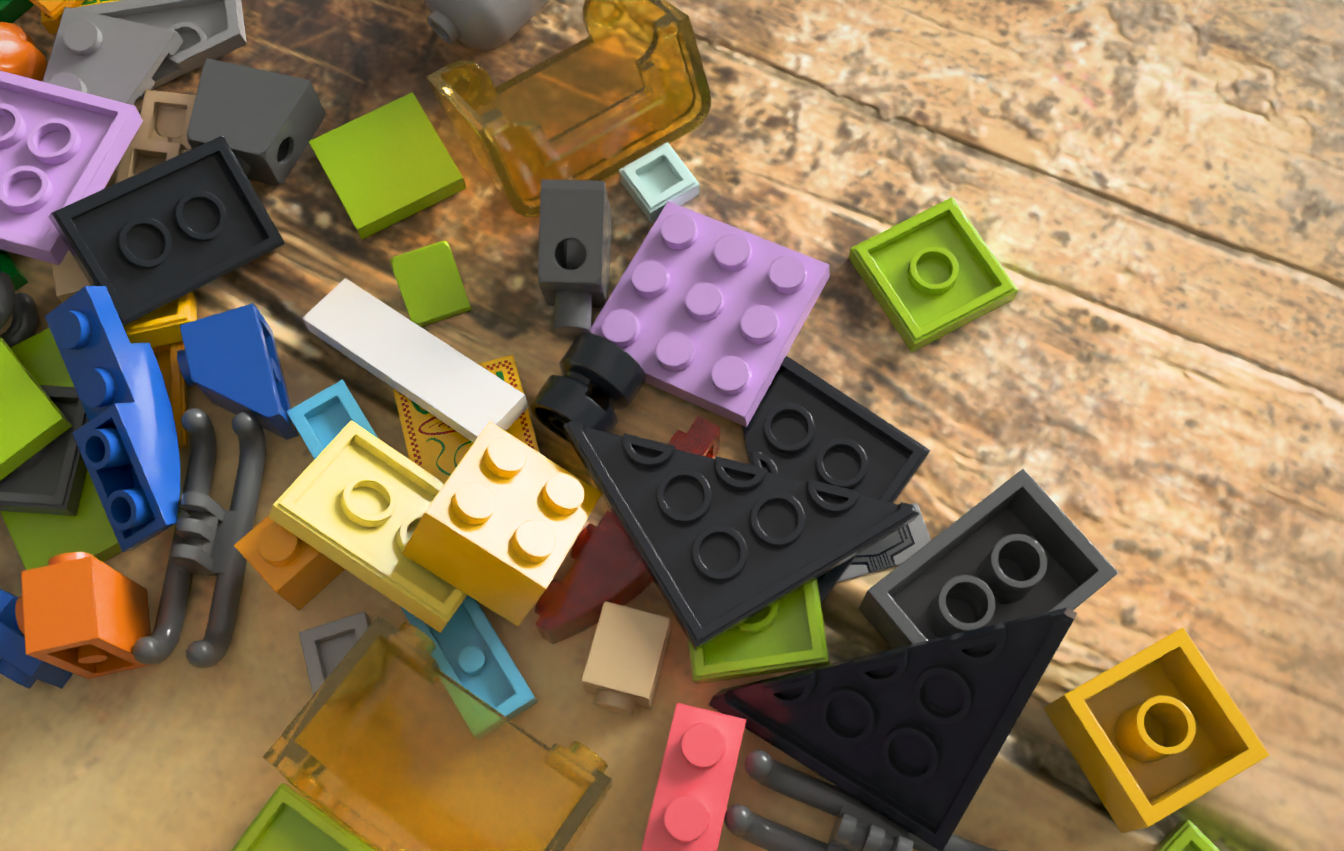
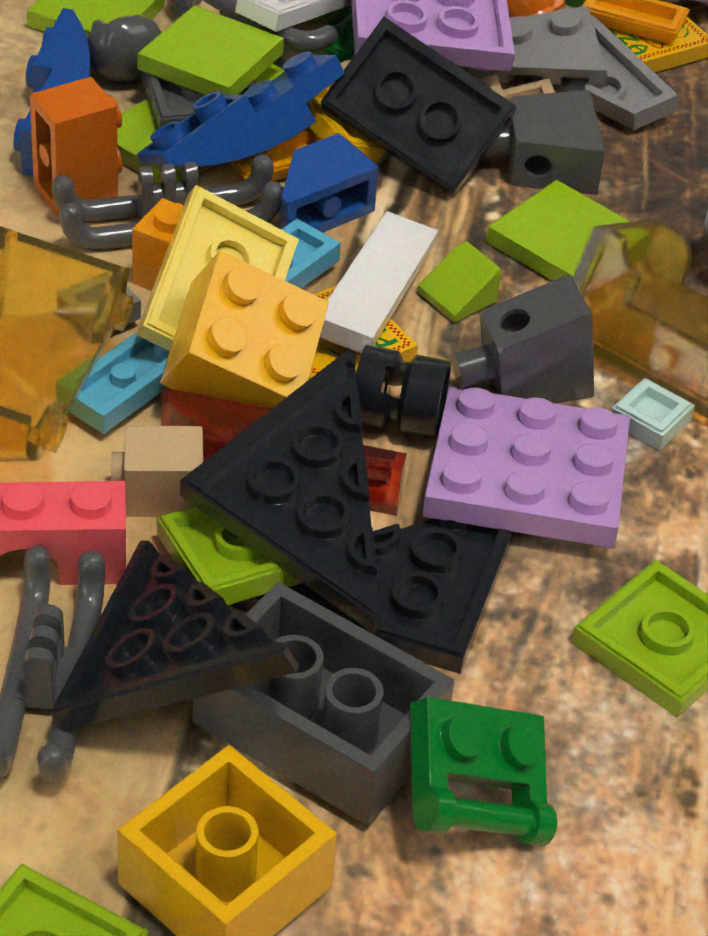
camera: 65 degrees right, 25 degrees down
(1083, 484) = (483, 749): none -> green plate

